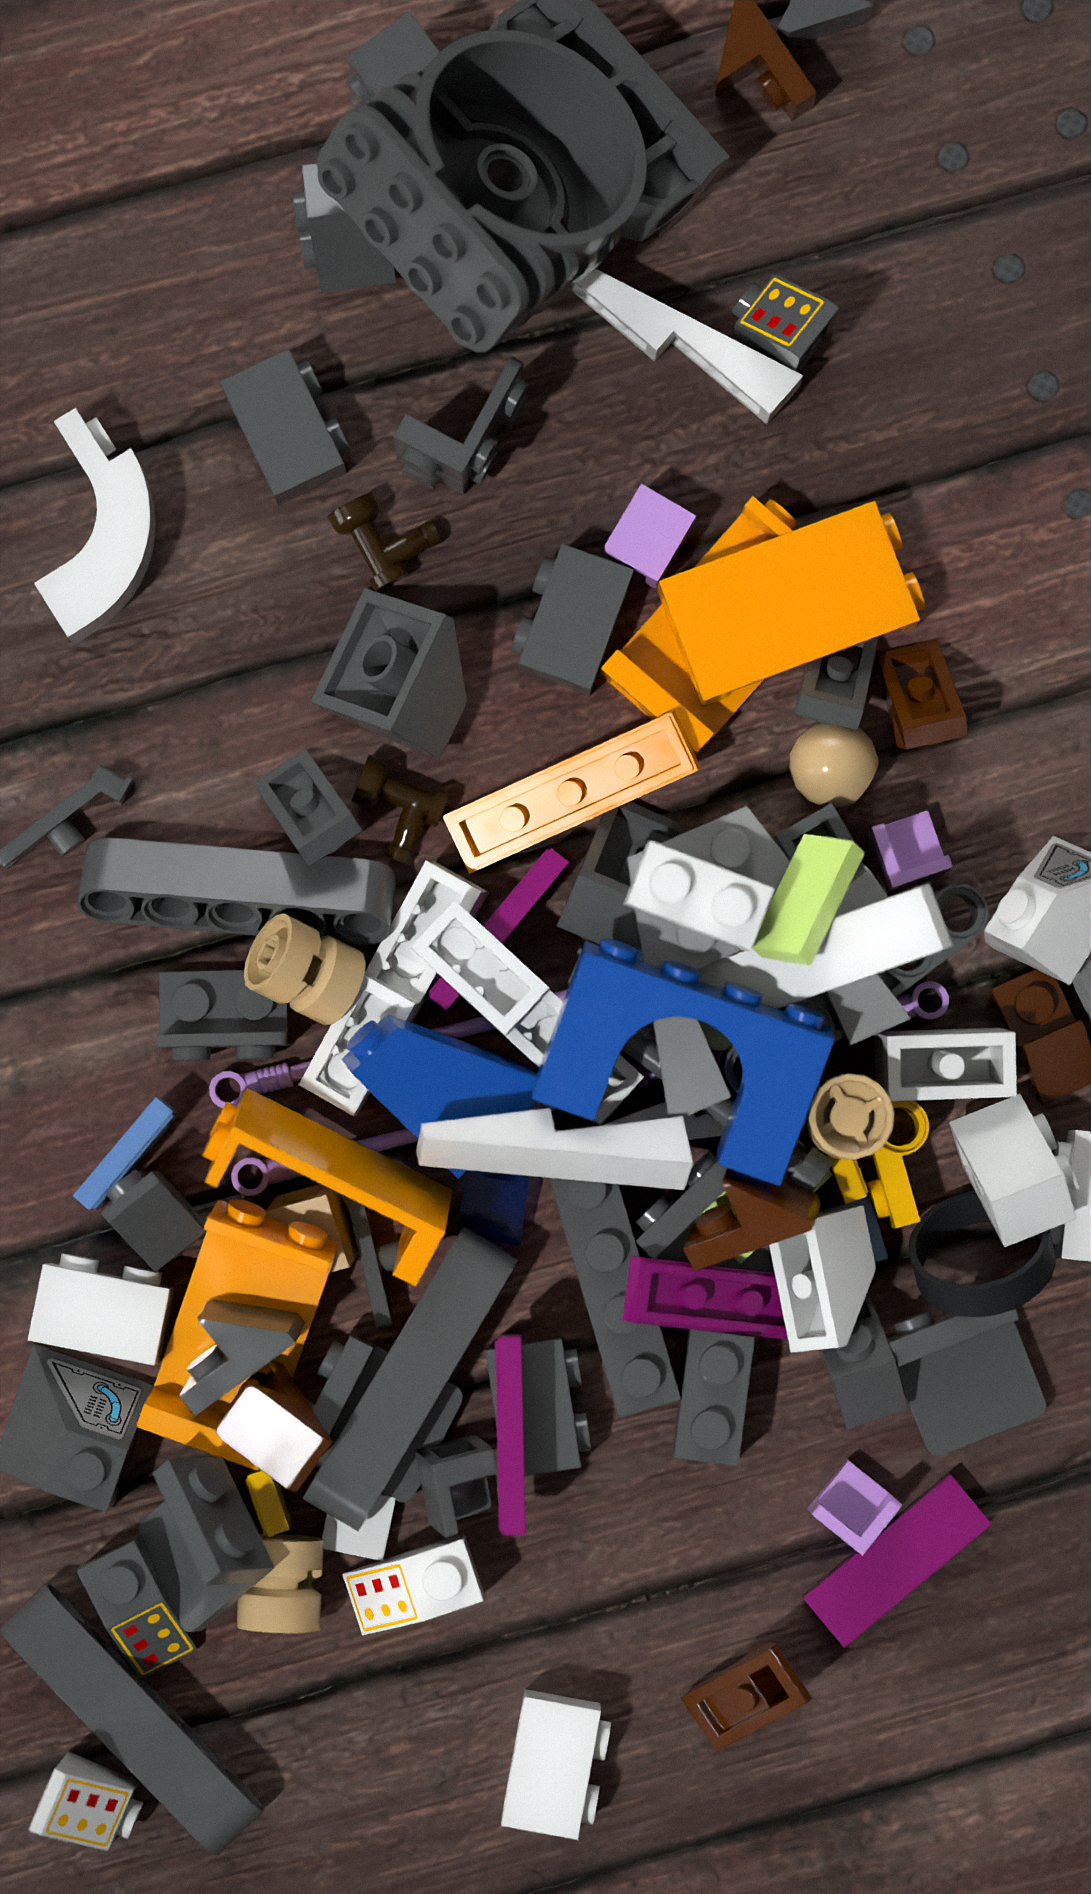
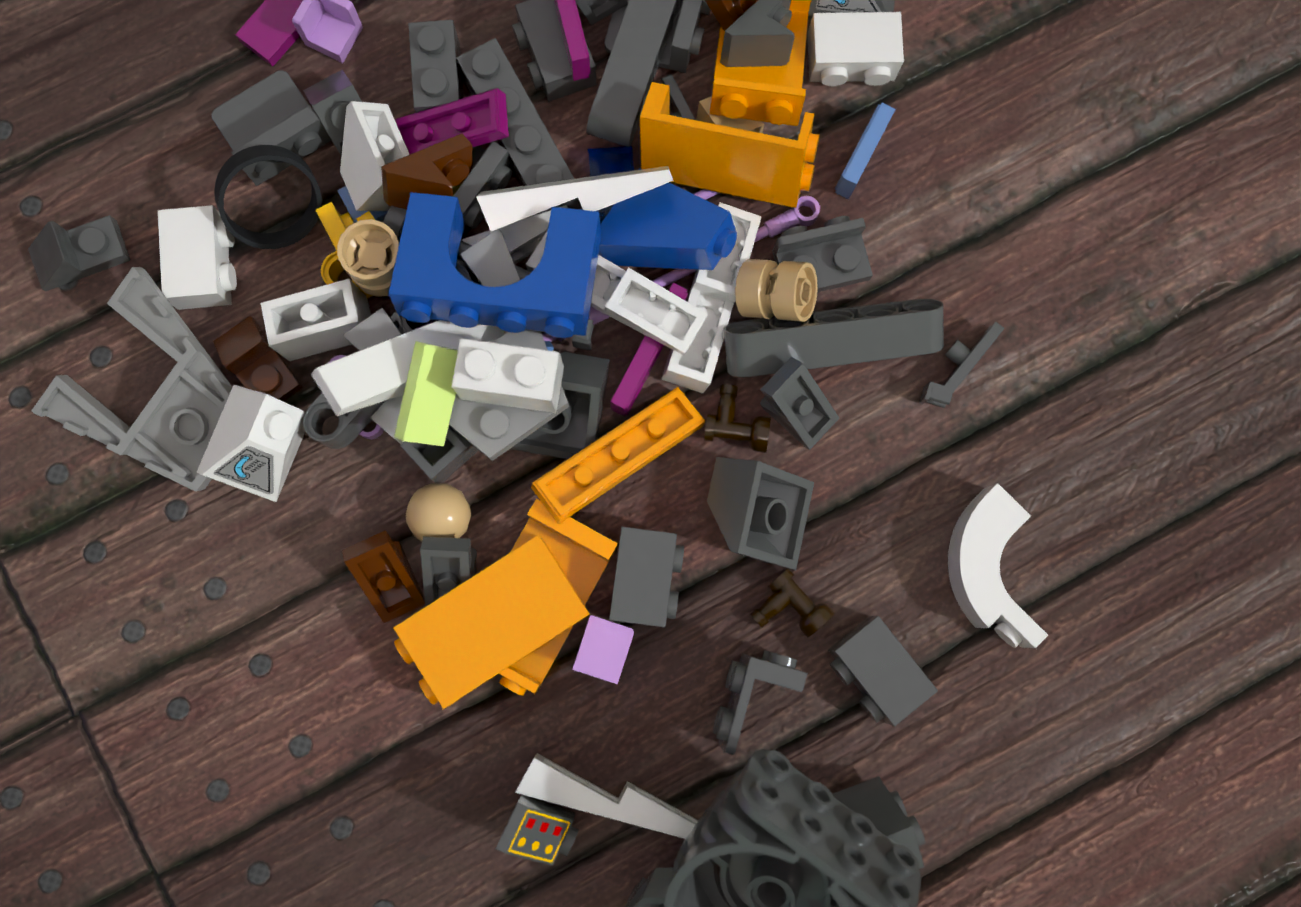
camera: 160 degrees right, 5 degrees down
(153, 1217) = (840, 108): dark grey slope -> none
(907, 851) = (373, 465): lavender panel -> none
(1014, 1169) = (253, 255): white brick -> none

